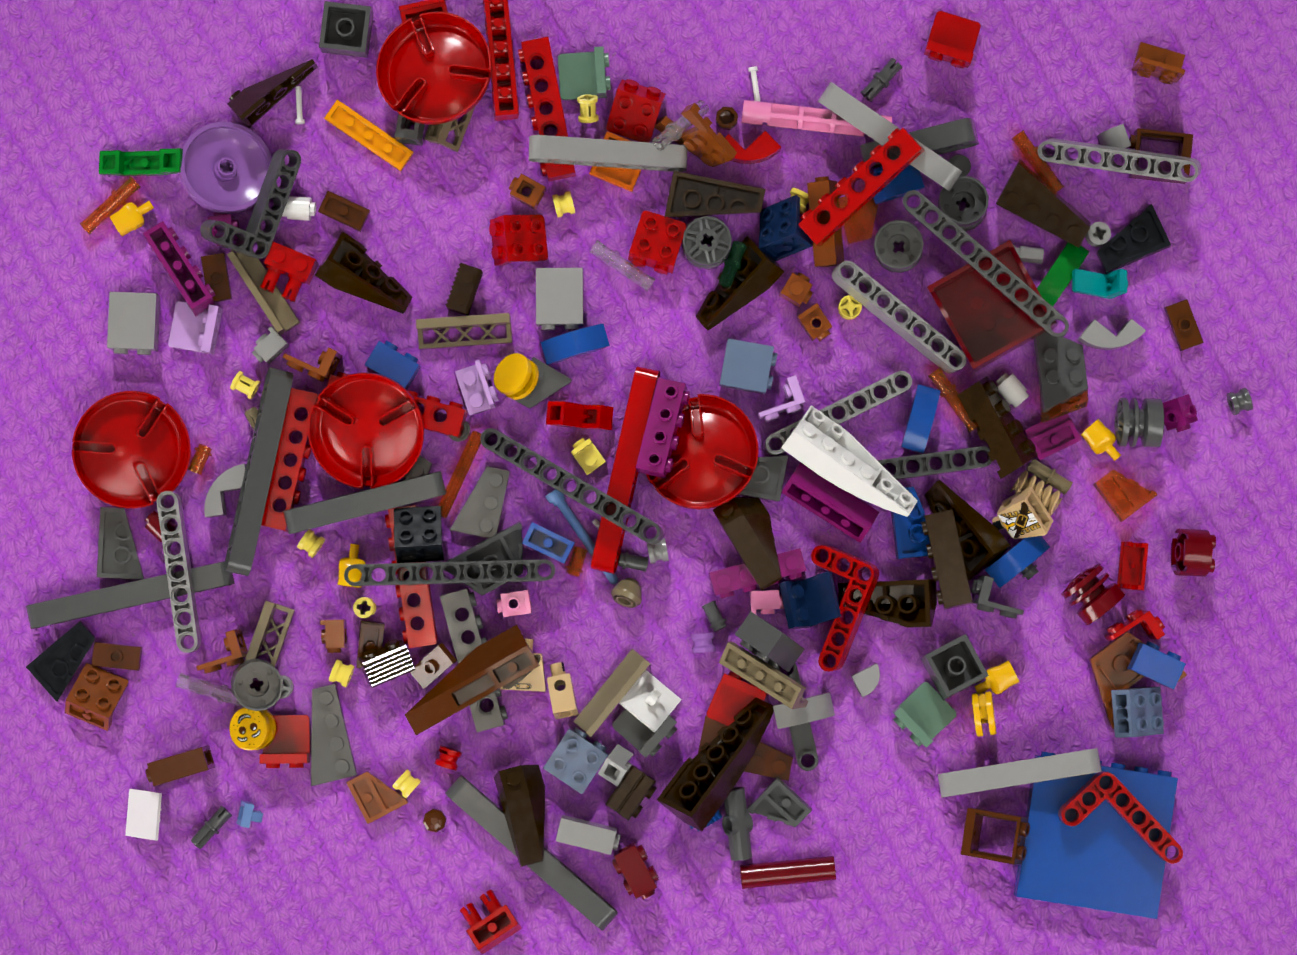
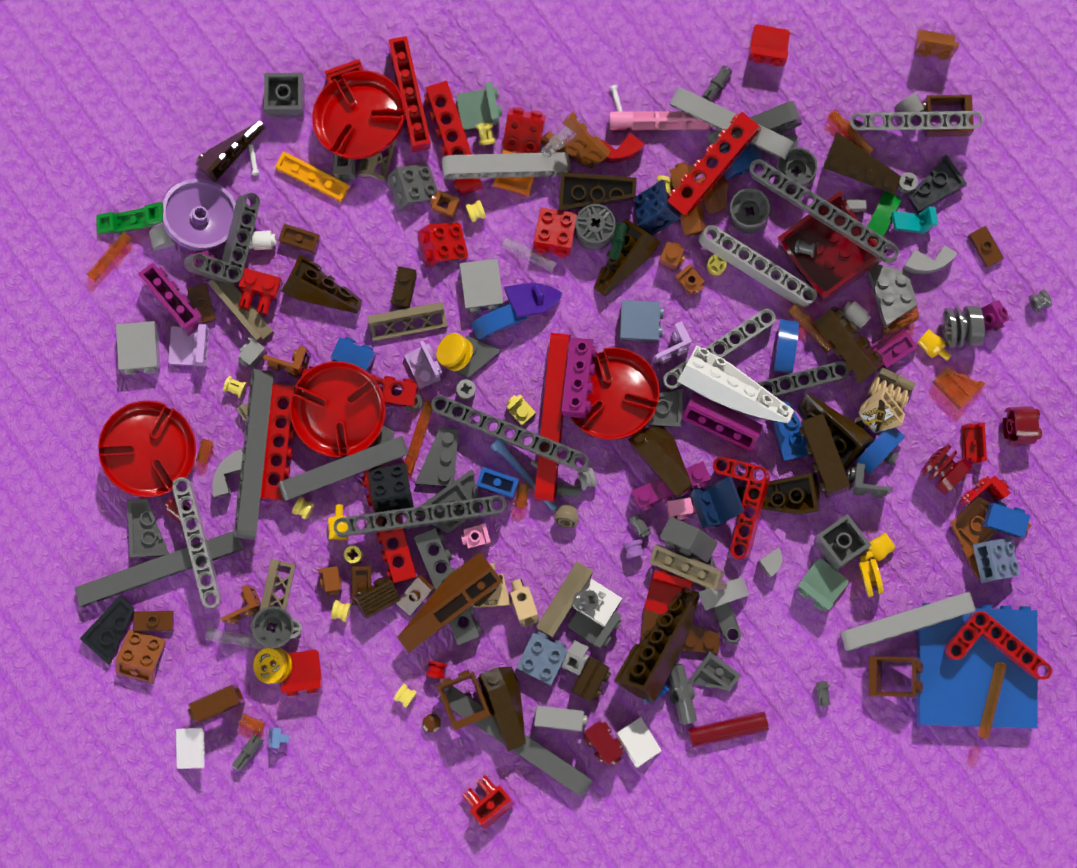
camera: 10 degrees left, 5 degrees down
(130, 217) = (126, 264): yellow piece -> none
(174, 190) = (160, 238): none -> light grey brick
(221, 794) = (253, 724): none -> clear orange pin
(330, 742) = (337, 668): dark grey wing -> none
(374, 796) = (379, 709): dark orange wing -> none
(481, 823) = (447, 682): none -> reddish brown window
(490, 162) = (411, 185): none -> dark grey bracket
(528, 424) = (463, 390): none -> light grey wheel
(579, 415) = (509, 378): red brick -> none
(618, 321) = (532, 298): none -> dark purple shield
(636, 699) = (586, 600): none -> dark grey wheel
(678, 874) = (638, 742): none -> white piece
(726, 118) = (598, 128): reddish brown tile -> none
(907, 843) = (823, 693): none -> dark grey pin
(961, 301) = (806, 247): none -> dark grey bush
(1106, 879) = (992, 700): none -> clear orange axle

